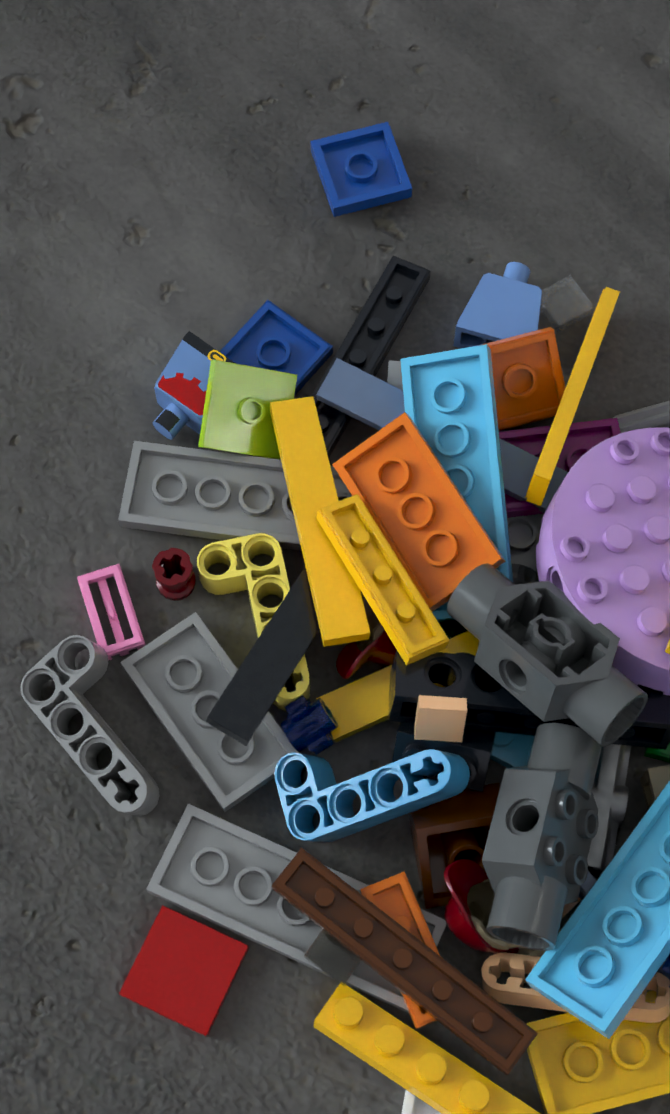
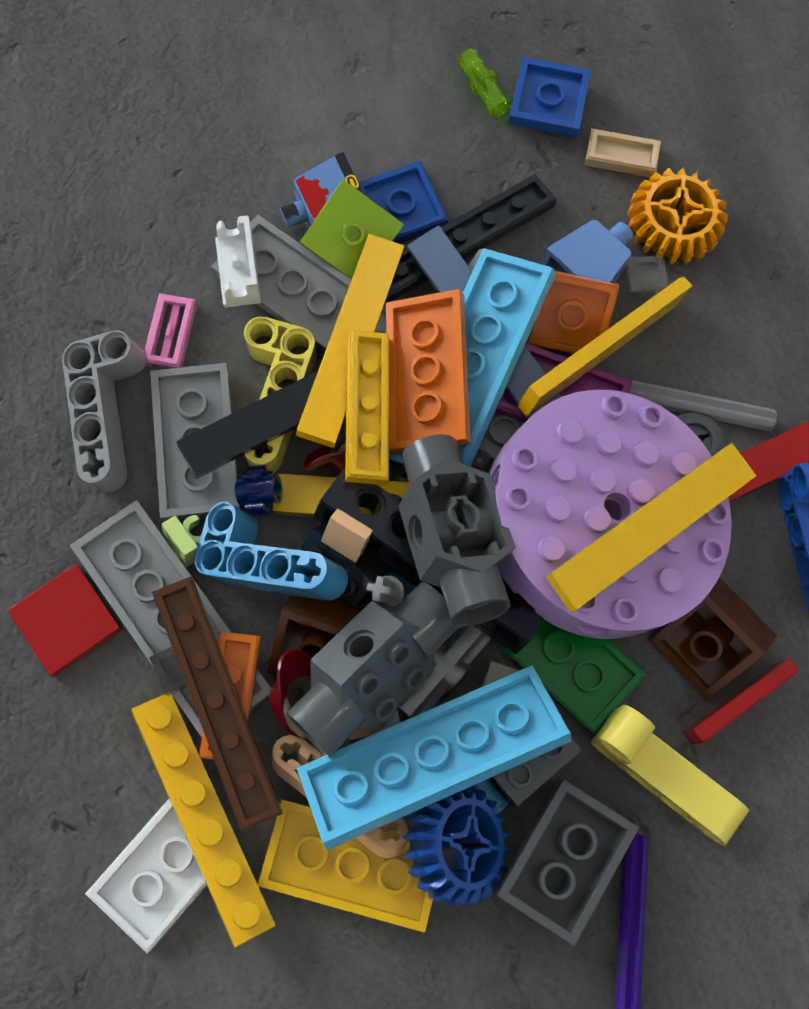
camera: 25 degrees right, 5 degrees up
(150, 502) = (237, 264): none -> white hinge
(178, 586) = (234, 319): dark red bush -> none
(259, 818) = (181, 539): none -> yellowish green tile
(261, 174) = (483, 82): none -> clear neon green pin
(466, 190) = (622, 153): none -> tan tile
(510, 752) = (388, 590): none -> light grey axle
(554, 242) = (689, 204): none -> light orange gear

